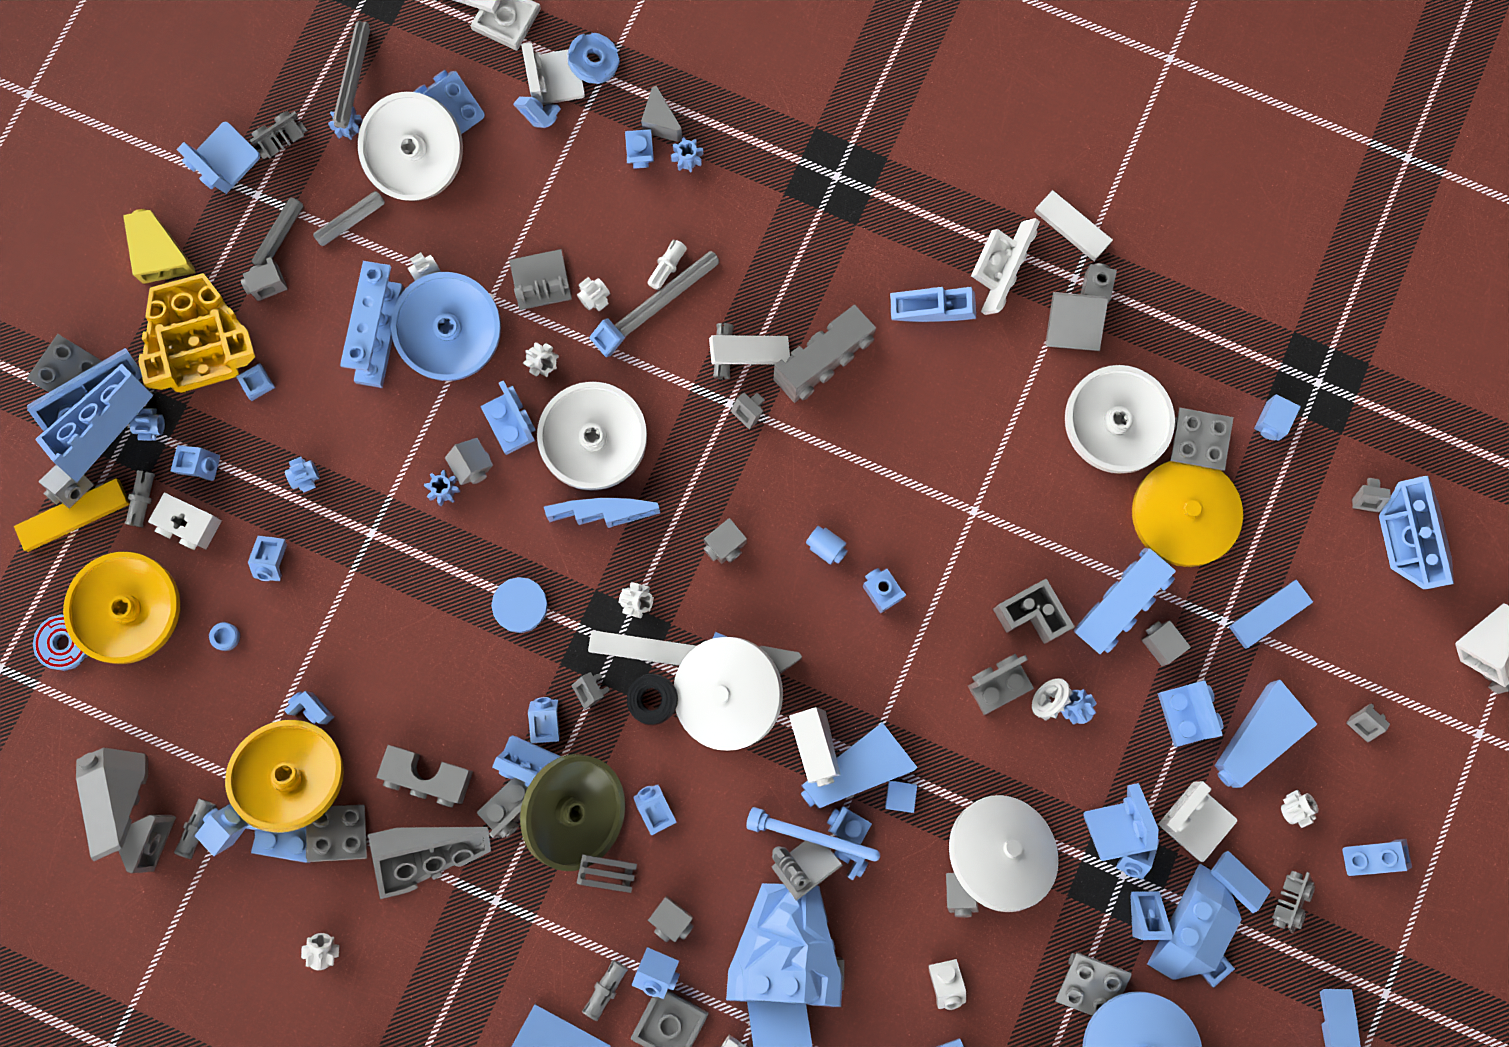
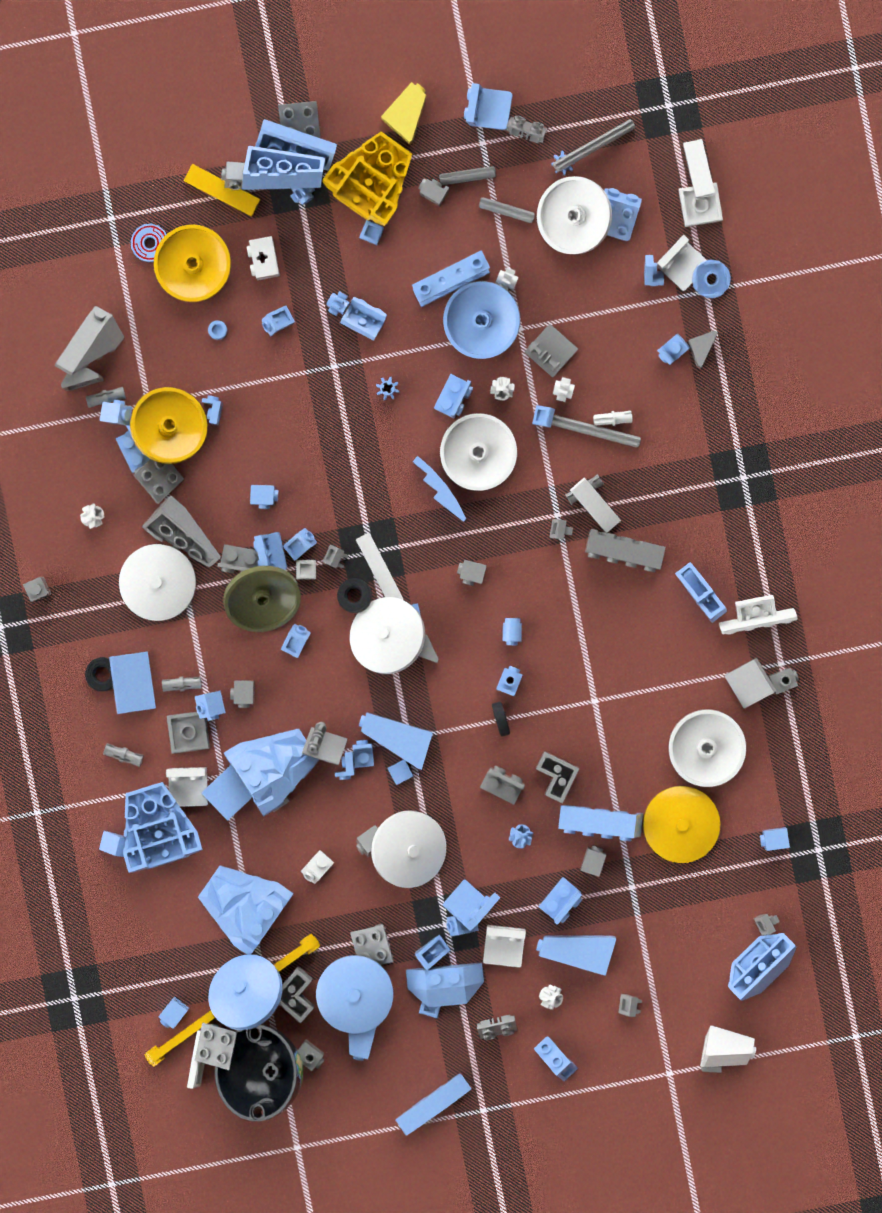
camera: 60 degrees right, 10 degrees up
(139, 499) = (258, 222): light grey pin -> none
(195, 462) = (300, 236): light blue bracket -> none
(342, 456) = (364, 318): none -> light blue bracket
(400, 769) = (216, 485): light grey arch -> none
(455, 722) = (263, 496): none -> light blue brick
(461, 929) = (157, 582): none -> white dish
(469, 461) = (413, 393): light grey brick -> none
(519, 605) = (353, 481): light blue tile -> none
(579, 735) = (306, 569): none -> white tile
(627, 877) = (248, 652): light grey tile -> none
(636, 600) = (403, 546): white gear -> none
(684, 148) = (686, 384): light blue gear -> none
(759, 820) = (331, 702): light blue piece -> none
(815, 745) = (392, 705): white slope -> none
(921, 630) = (500, 719): none -> black tyre
(1042, 703) = (506, 818): white gear -> none
(1073, 225) = (812, 640): white tile -> none
(1201, 439) = (730, 803): light grey hinge -> none
(1240, 881) = (487, 990): light blue tile -> none
(1270, 614) = (654, 910): light blue tile -> none

